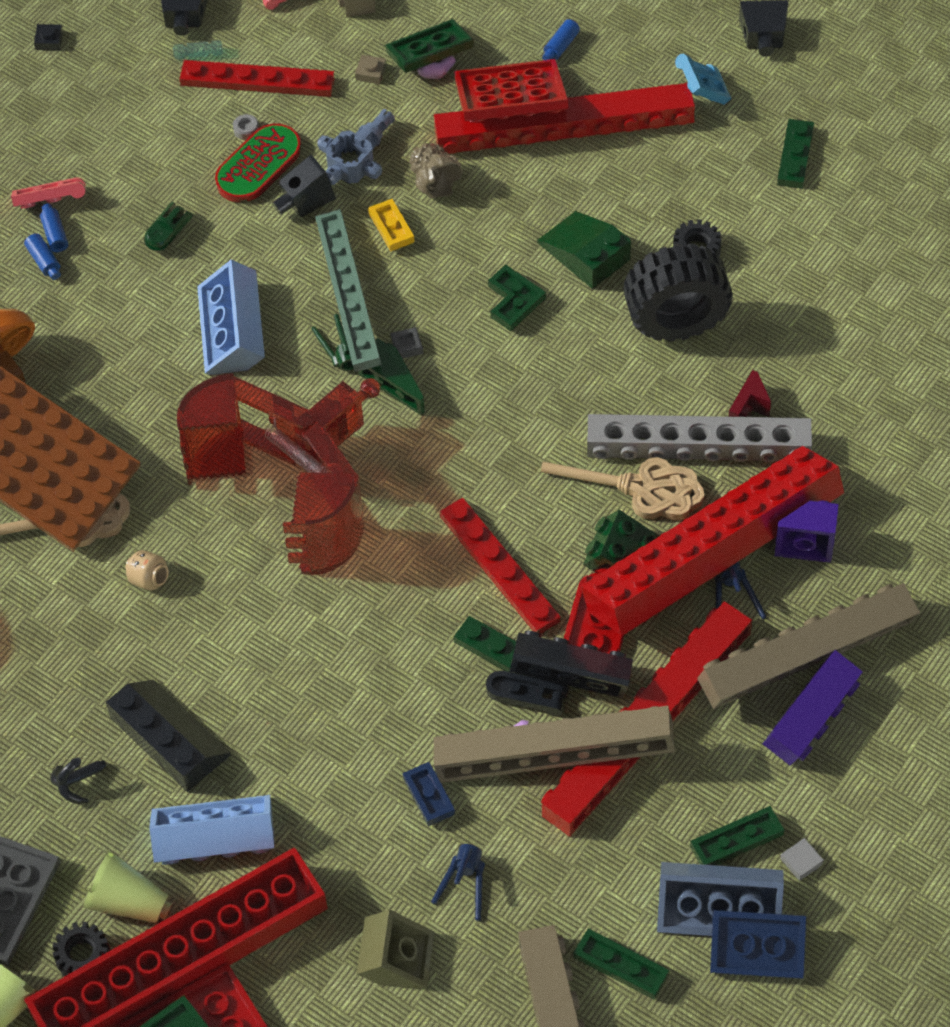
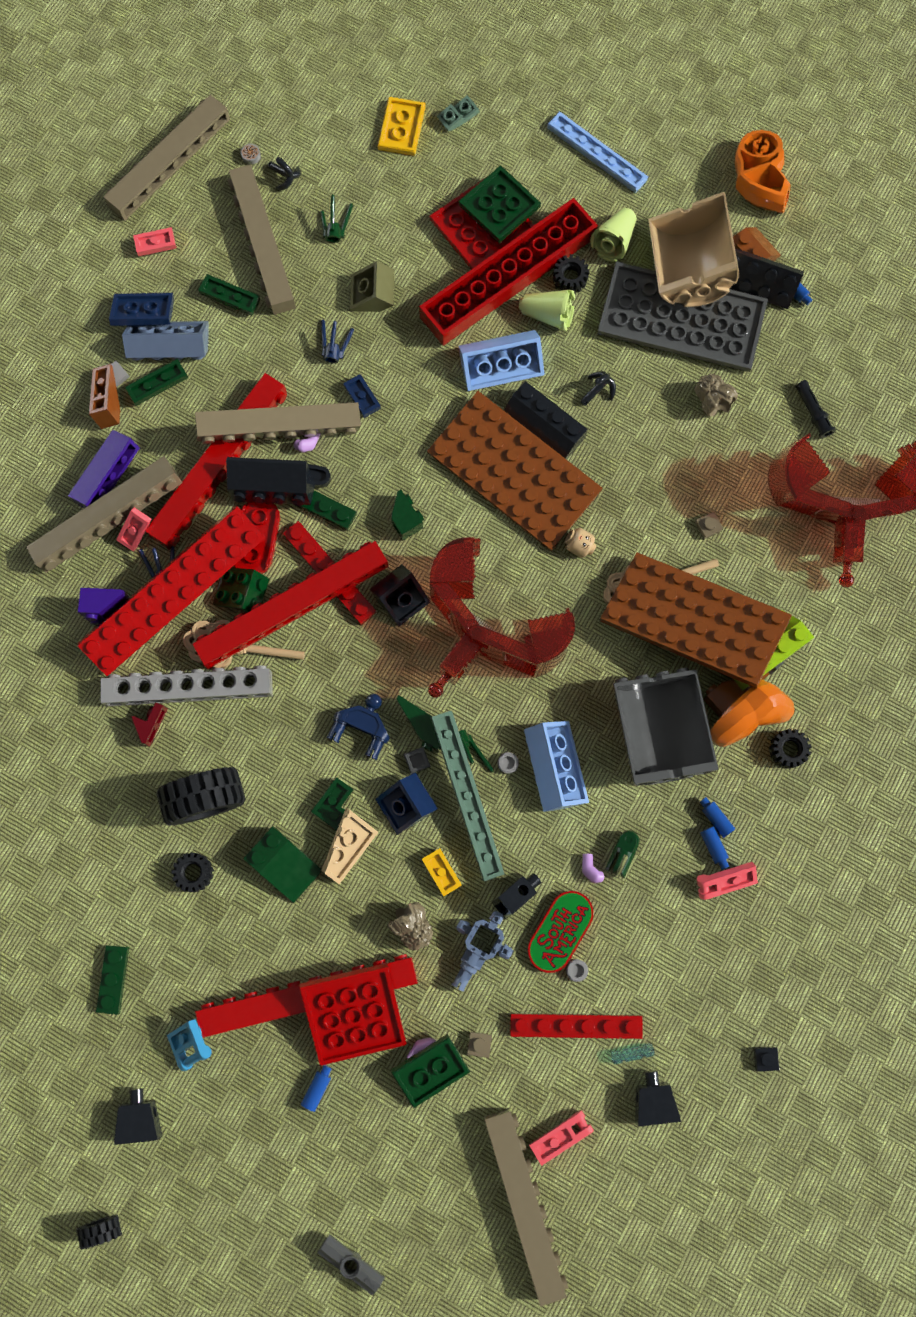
camera: 170 degrees right, 20 degrees up
(86, 337) = (665, 727): none -> dark grey cylinder
(207, 211) = (589, 870): none -> lavender arm
(222, 674) = (514, 470): none -> dark orange plate
(291, 332) = (508, 763): none -> light grey tile
(386, 621) = (404, 517): none -> dark green slope
(406, 526) = (400, 595): none -> black slope
(424, 293) = (406, 803): none -> dark blue slope
(470, 386) = (363, 720): none -> dark blue connector
(502, 254) = (347, 846): none -> tan wing
(550, 512) = (290, 605): none -> red brick
(766, 624) = (133, 529): none -> coral plate
(815, 816) = (104, 399): none -> dark orange slope

